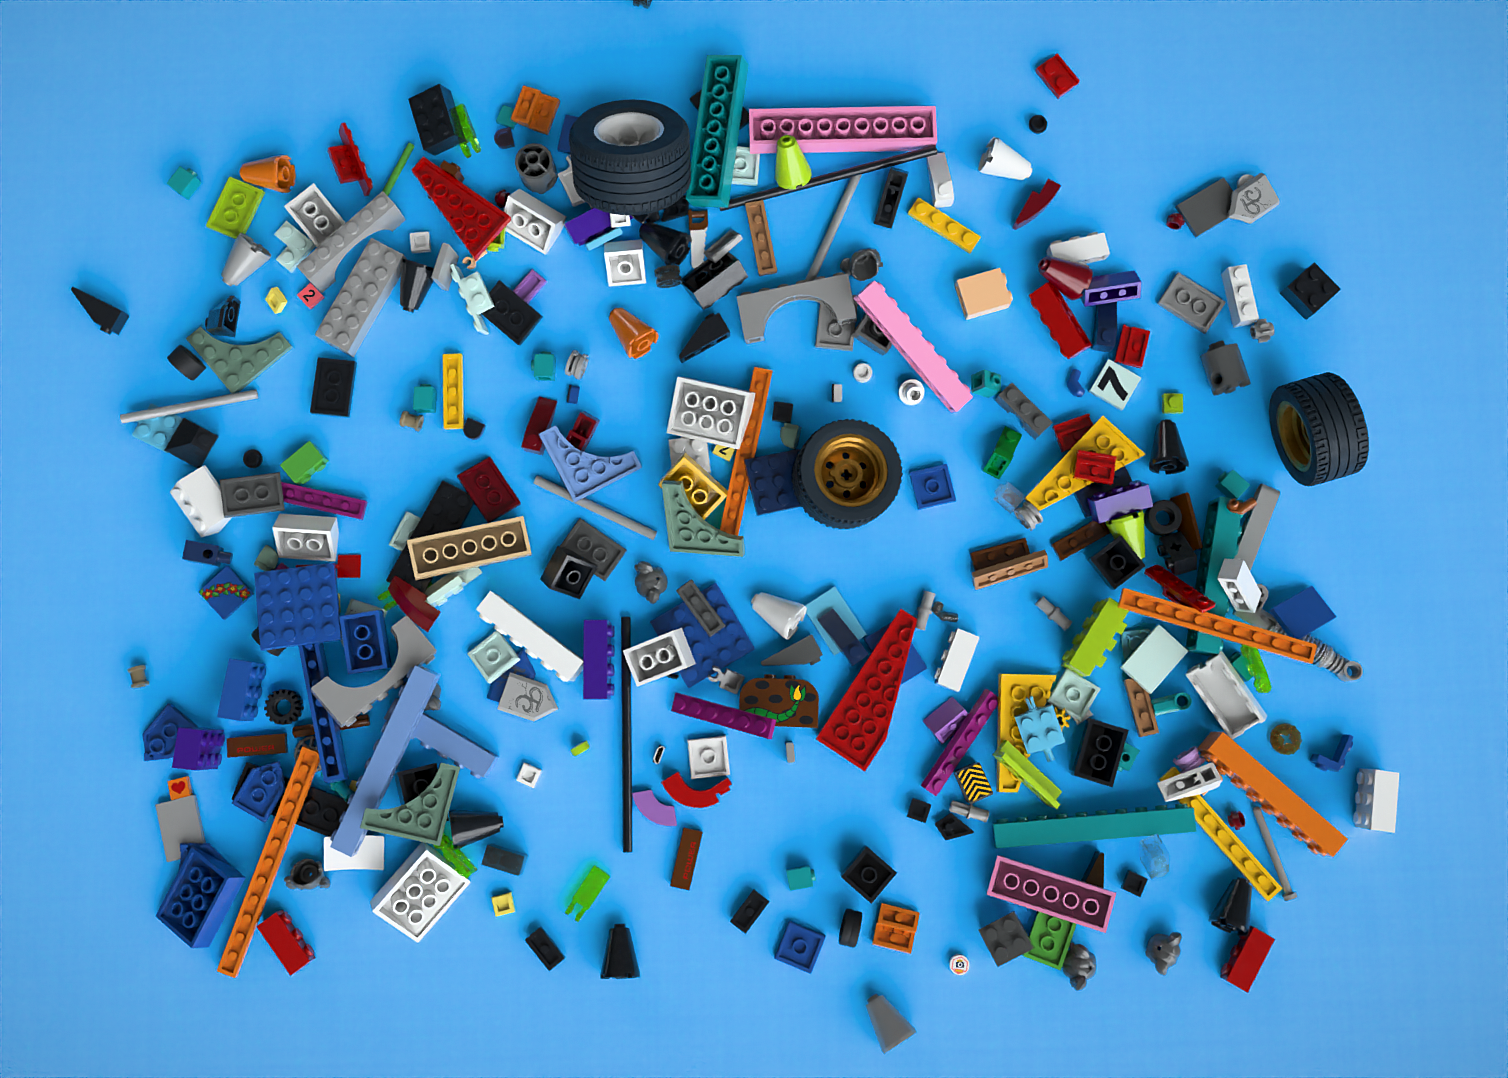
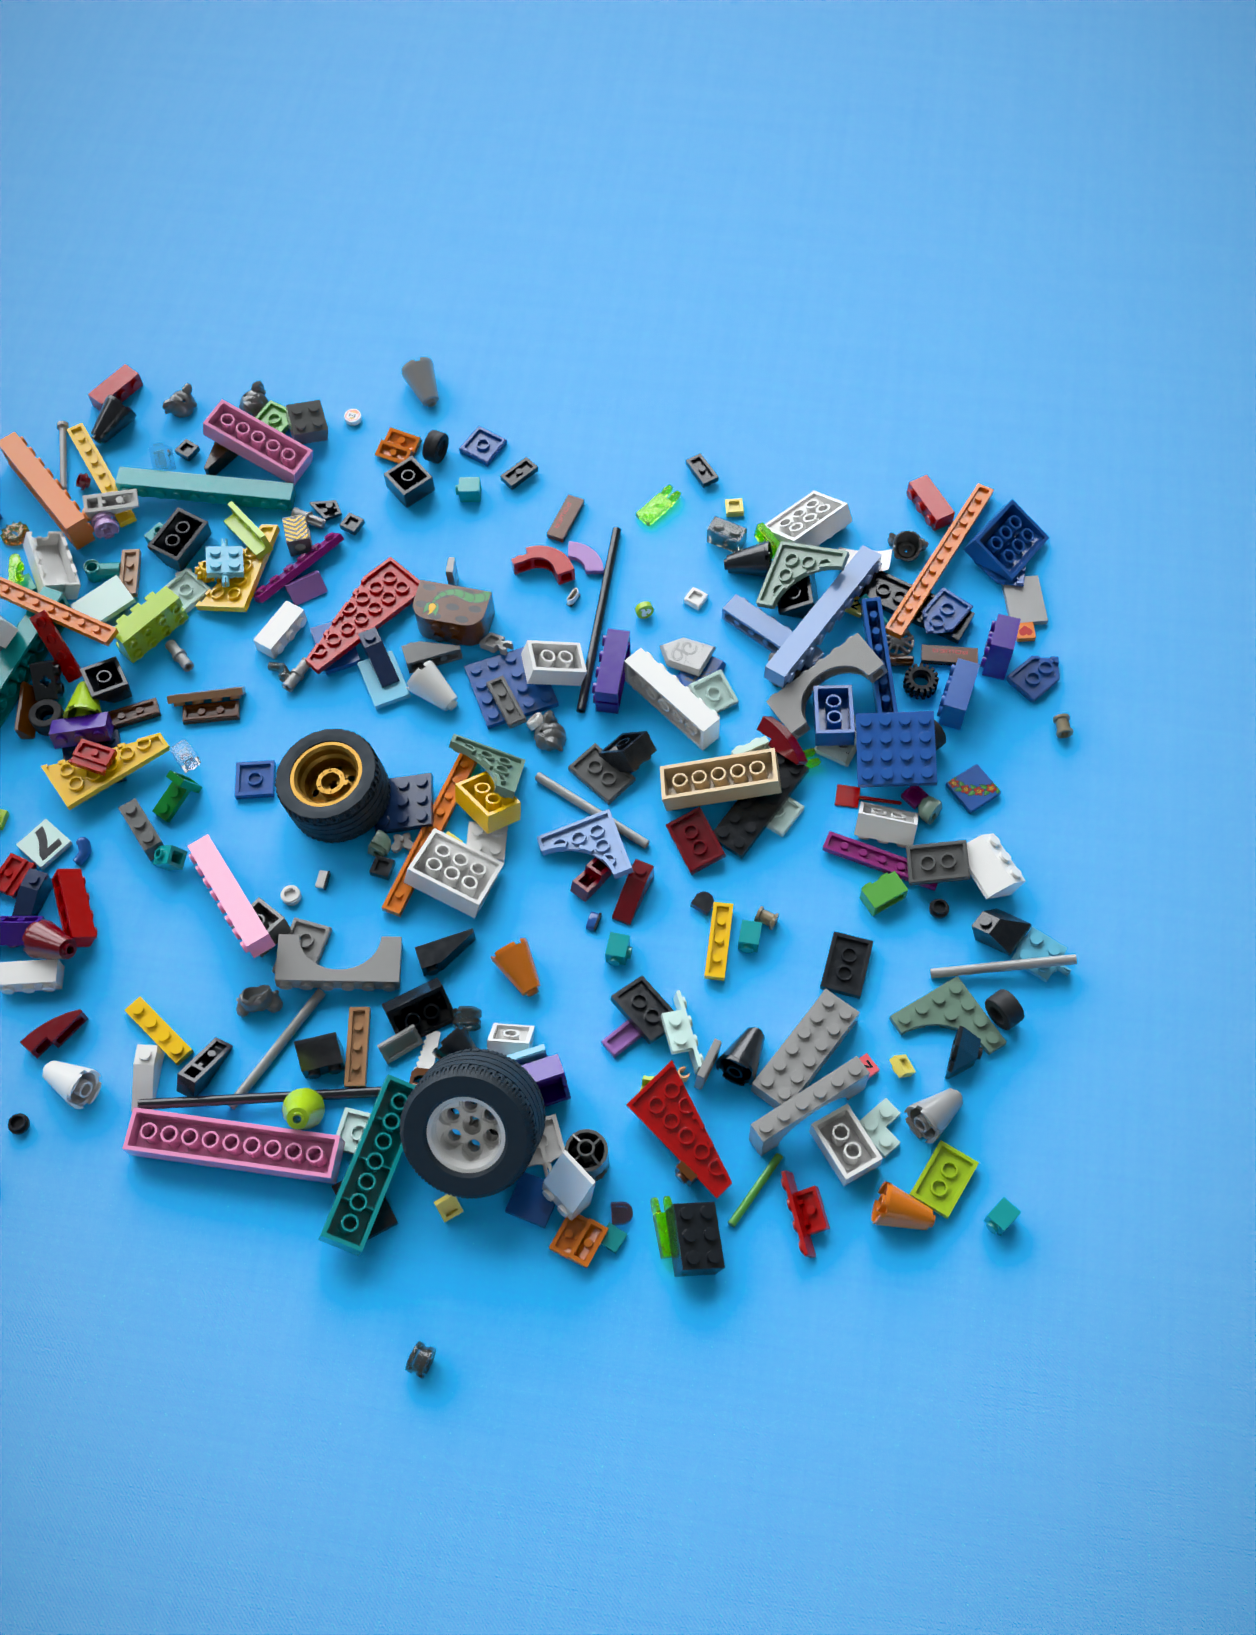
camera: 170 degrees left, 20 degrees down
(101, 313) = (1101, 1084): black slope -> none
(199, 553) = (990, 819): dark blue torso -> none
(420, 242) = (734, 1105): white plate -> none
(501, 198) = (634, 1139): dark red plate -> none
(533, 221) = (602, 1106): white slope -> none
(545, 133) = (568, 1186): none -> white slope
(576, 364) = (583, 943): light grey wheel -> none
(619, 955) = (637, 452): black cone -> none
(667, 594) = (535, 721): none -> white tile
(708, 757) = (528, 590): white tile -> none
(724, 715) = (504, 603): magenta plate -> none
(770, 444) = (401, 842): none -> light grey piece
(789, 220) = (320, 1055): none -> black slope
(911, 392) = (246, 864): white piece -> none
(983, 293) = (142, 949): light nougat brick -> none
(1028, 515) = (171, 734): light grey wheel -> none
(1072, 431) = (101, 805): red plate -> none
(1168, 450) = (17, 772): black cone -> none

